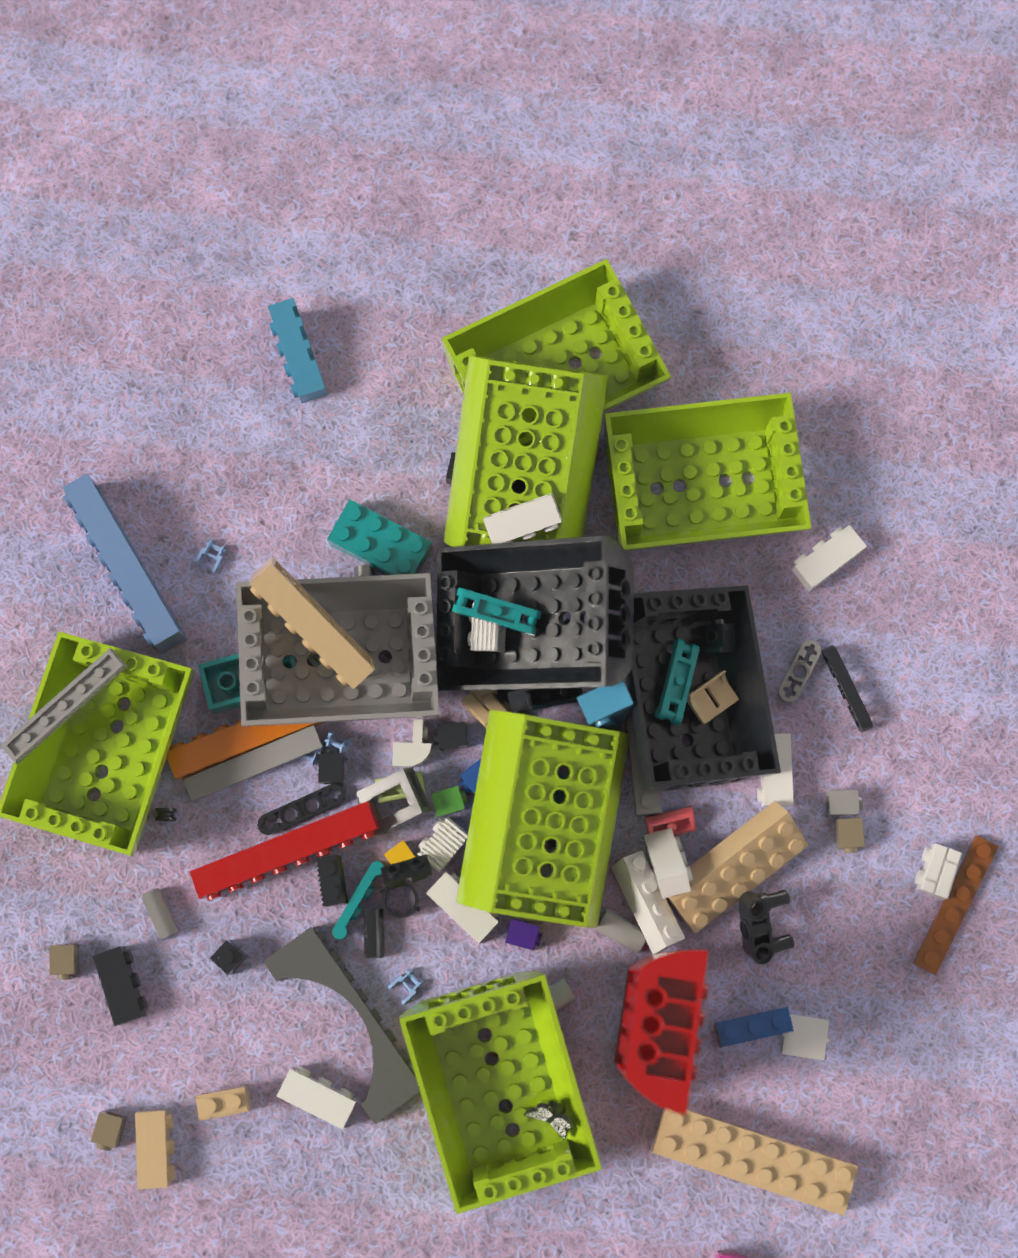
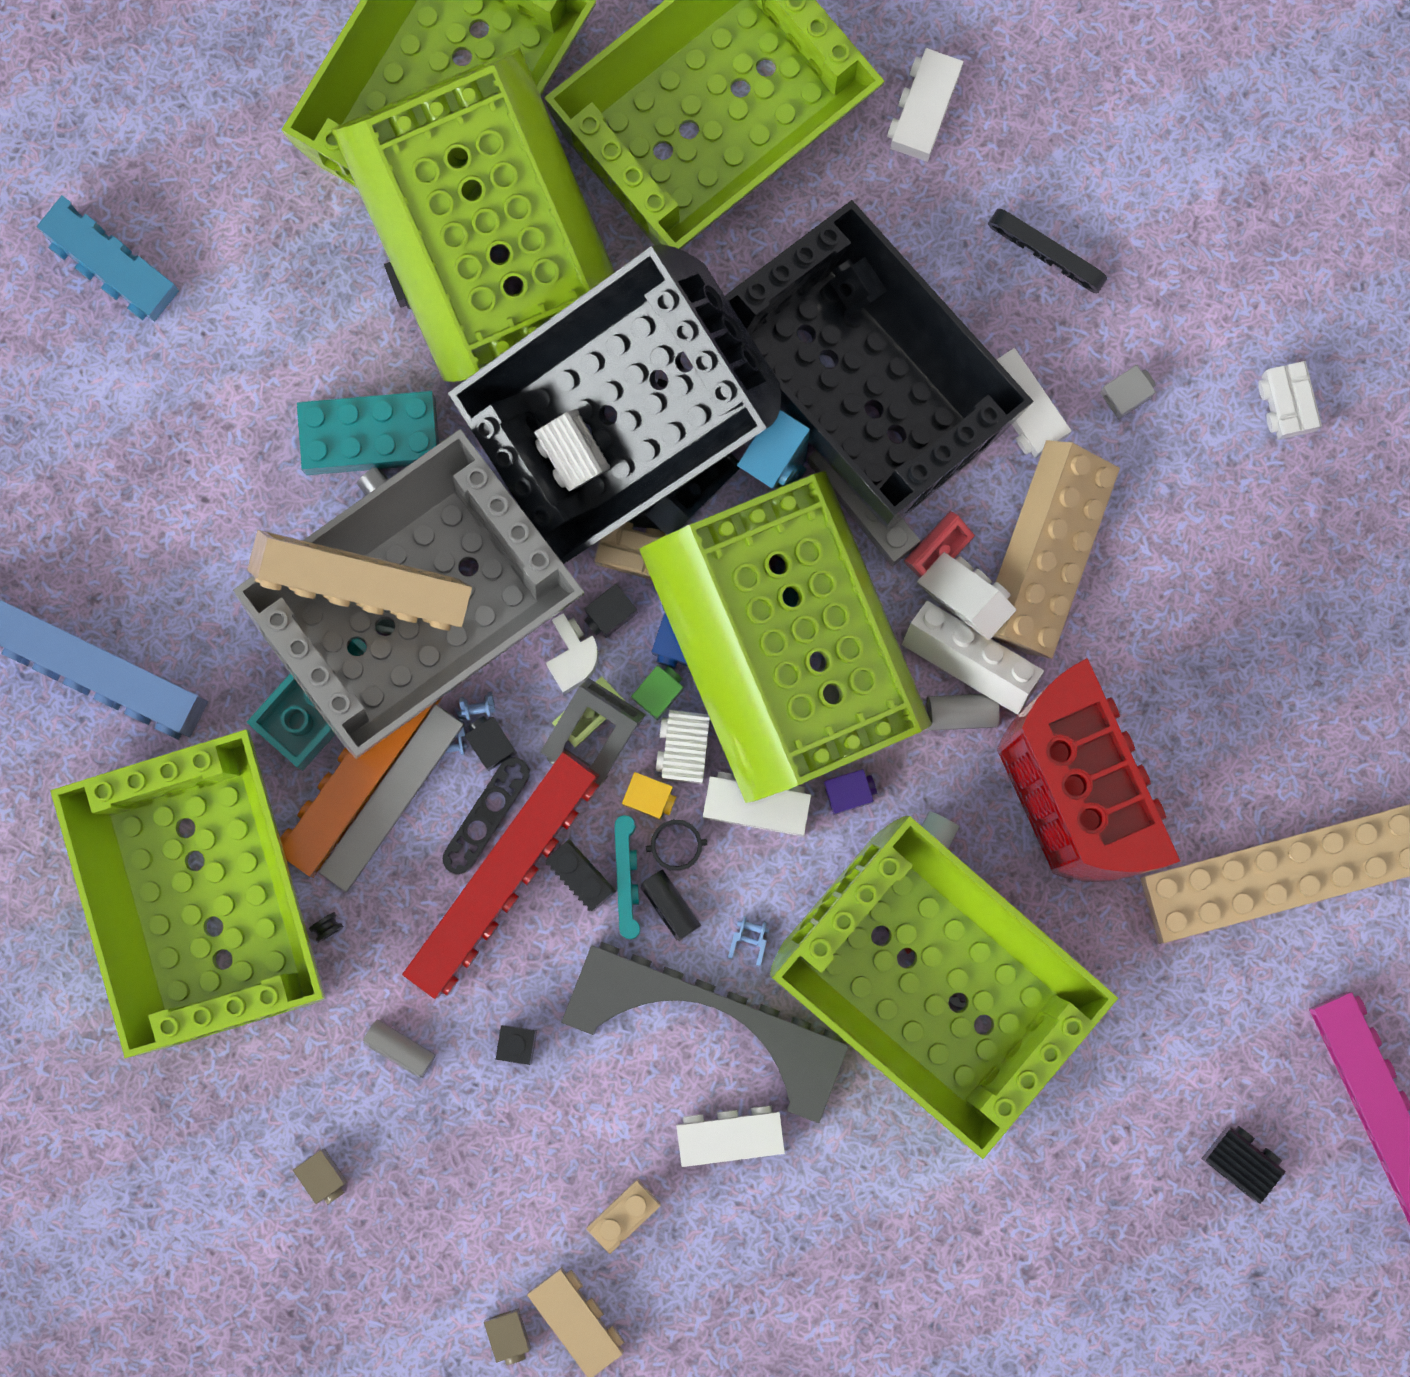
camera: 30 degrees left, 5 degrees up
(63, 706) = (120, 874): light grey tile -> none
(120, 985) = (408, 1161): black brick -> none
(205, 552) = (159, 581): light blue piece -> none
(415, 868) = (670, 796): black hinge -> none
(496, 611) = (572, 424): teal plate -> none
(523, 520) = (532, 291): white brick -> none
(554, 1114) = (1019, 974): animal -> none
(677, 681) = (841, 370): teal plate -> none
(720, 692) = (899, 351): tan piece -> none
(753, 1027) = (1189, 723): blue brick -> none
(757, 928) = (1119, 602): black piece -> none
(807, 1039) = (1256, 696): white piece -> none
(812, 659) = (987, 289): light grey beam -> none
(849, 834) = (1159, 424): dark tan brick -> none
(955, 907) = (1336, 433): dark orange plate -> none

